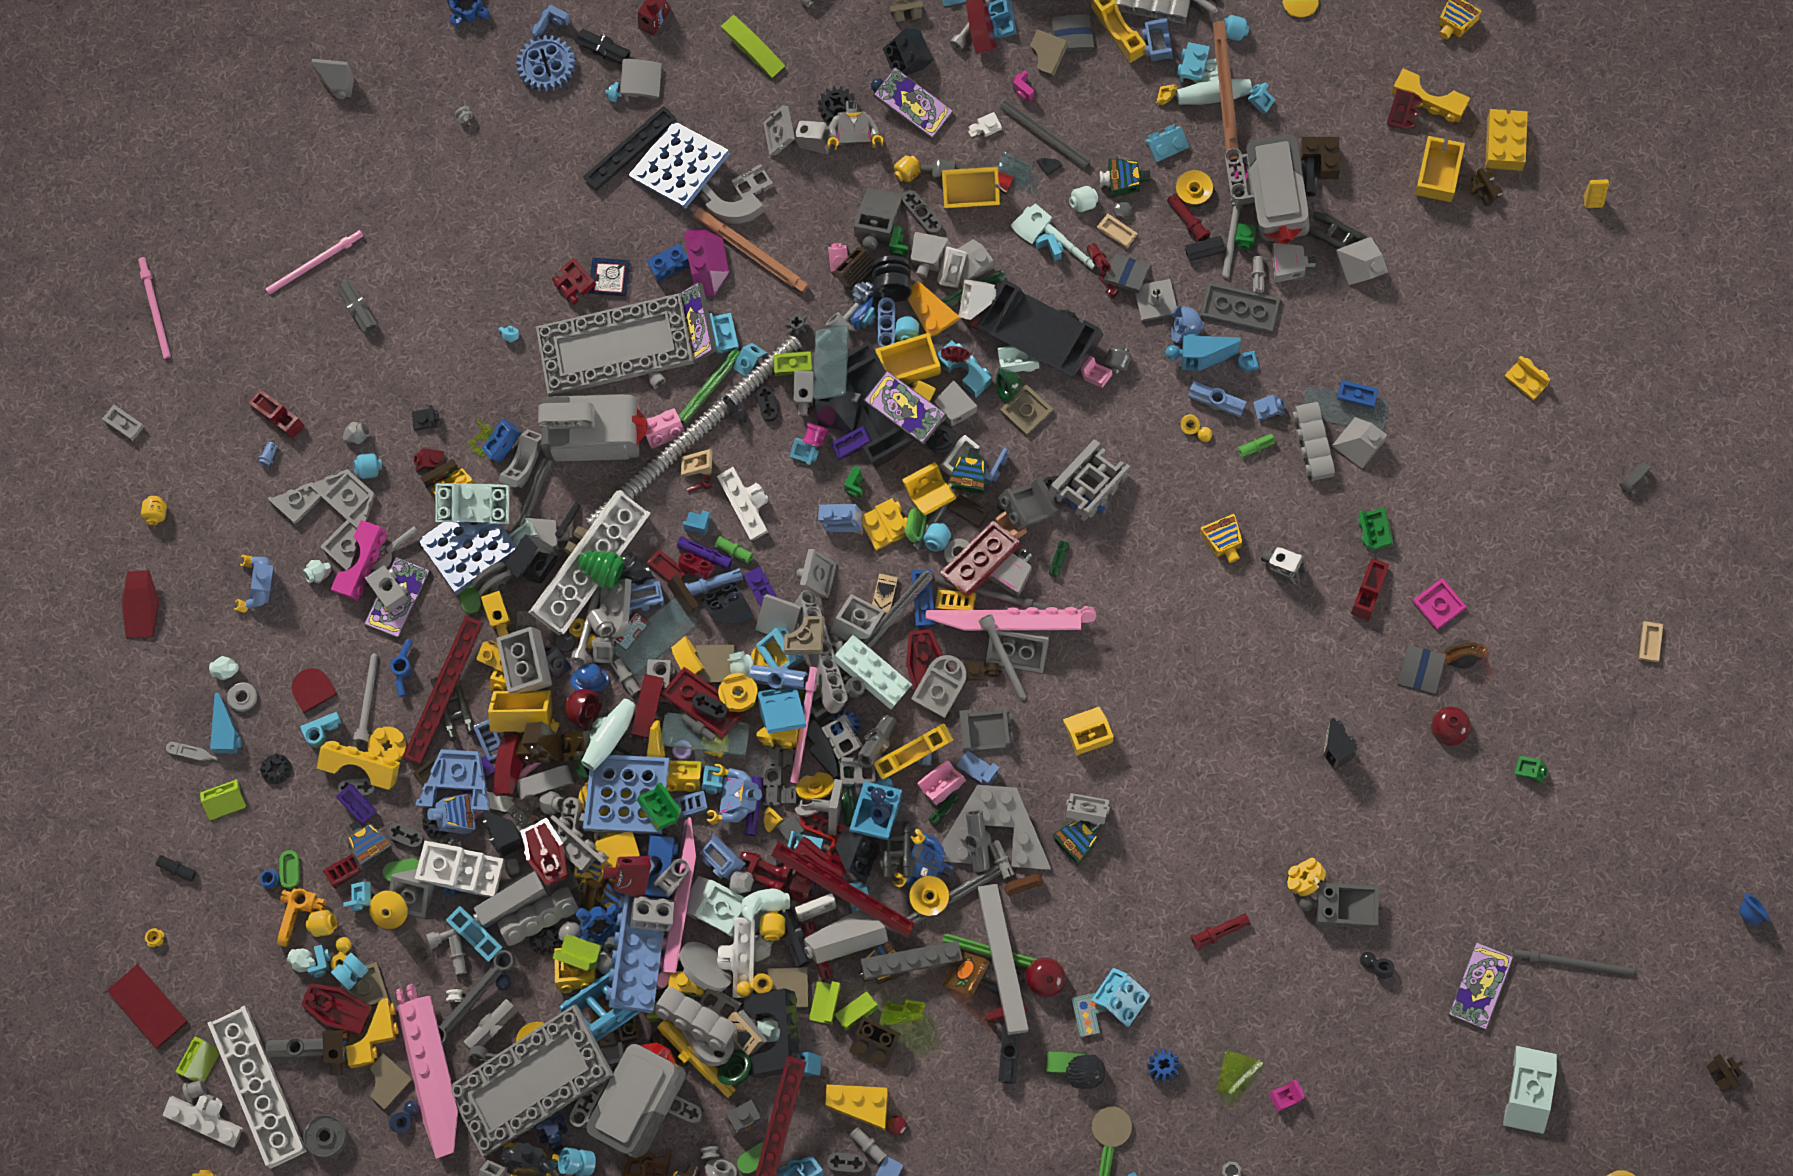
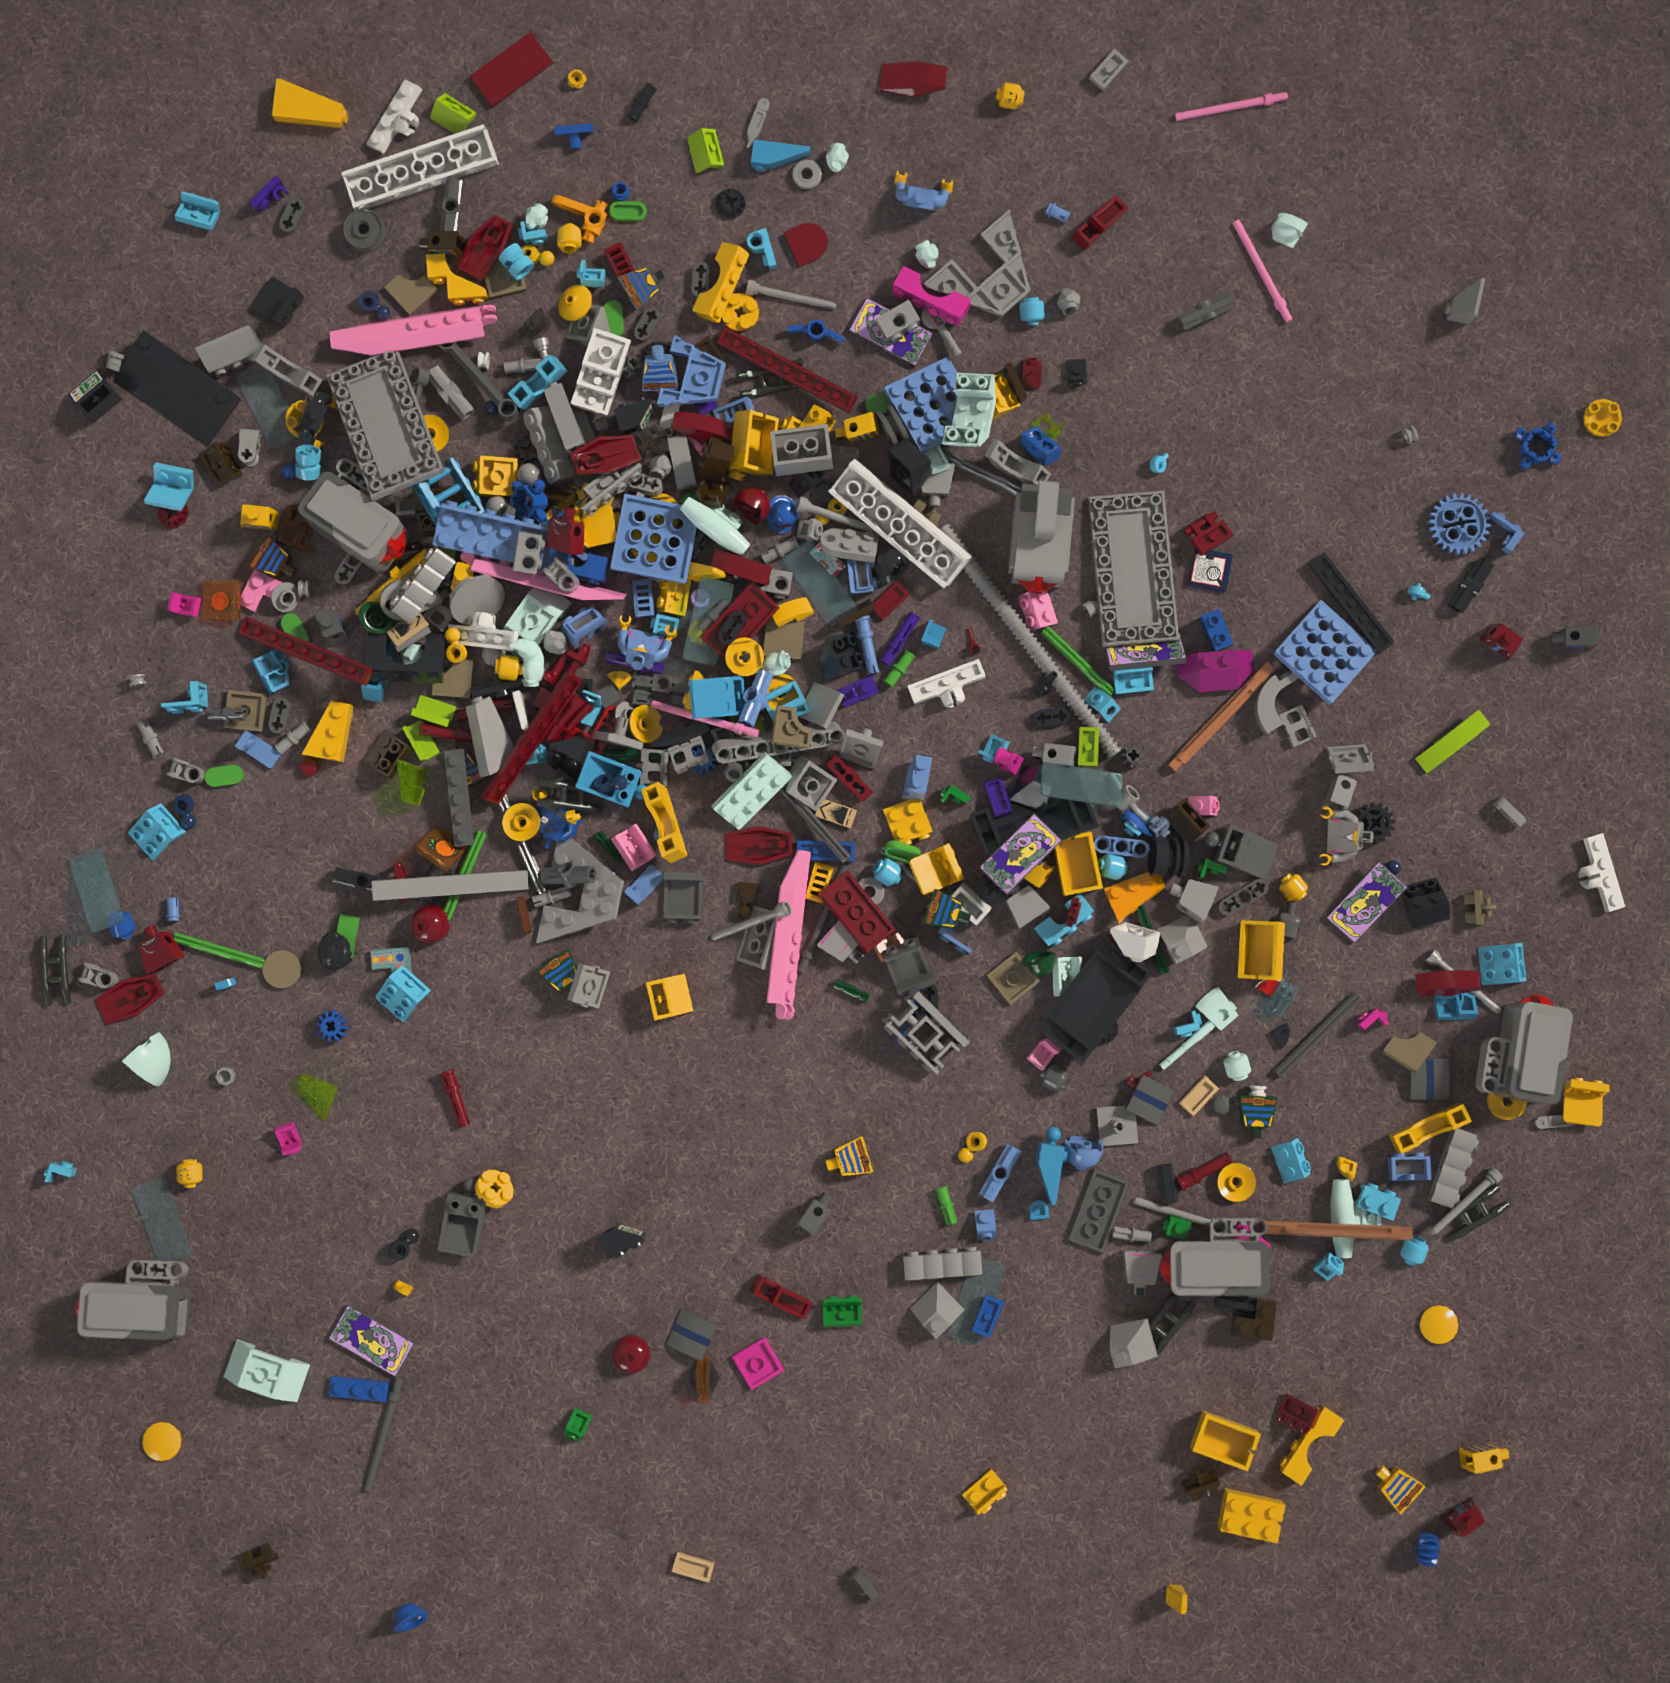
camera: 85 degrees right, 15 degrees up
(194, 1090) = (423, 109): light grey piece -> none
(211, 931) = (574, 133): none -> blue tile
(272, 244) = (1288, 229): none -> light aqua piece
(356, 804) = (683, 278): dark purple plate -> none
(552, 1134) = (339, 441): dark blue piece -> none
(568, 519) = (949, 506): black piece -> none
(578, 953) = (503, 479): lime panel -> none
(600, 622) = (834, 528): light grey brick -> none
(601, 567) = (886, 533): green piece -> none
(640, 78) = (1429, 621): light grey slope -> none
(659, 807) = (632, 568): green bracket -> none
(695, 565) = (886, 628): dark red plate -> none
(697, 463) = (993, 639): tan slope -> none
(846, 975) = (445, 732): none -> dark red pin
(847, 577) = (849, 785): none -> dark red piece
(877, 740) = (681, 788): dark grey piece -> none
(939, 686) = (731, 856): light grey plate -> none
(951, 267) = (1176, 920): white slope -> none
(987, 125) = (1334, 976): white plate -> none
(1098, 258) = (1167, 1072): dark red pin -> none
(1421, 960) = (402, 1287): none -> yellow tile
(1532, 993) = (359, 1388): none -> blue plate

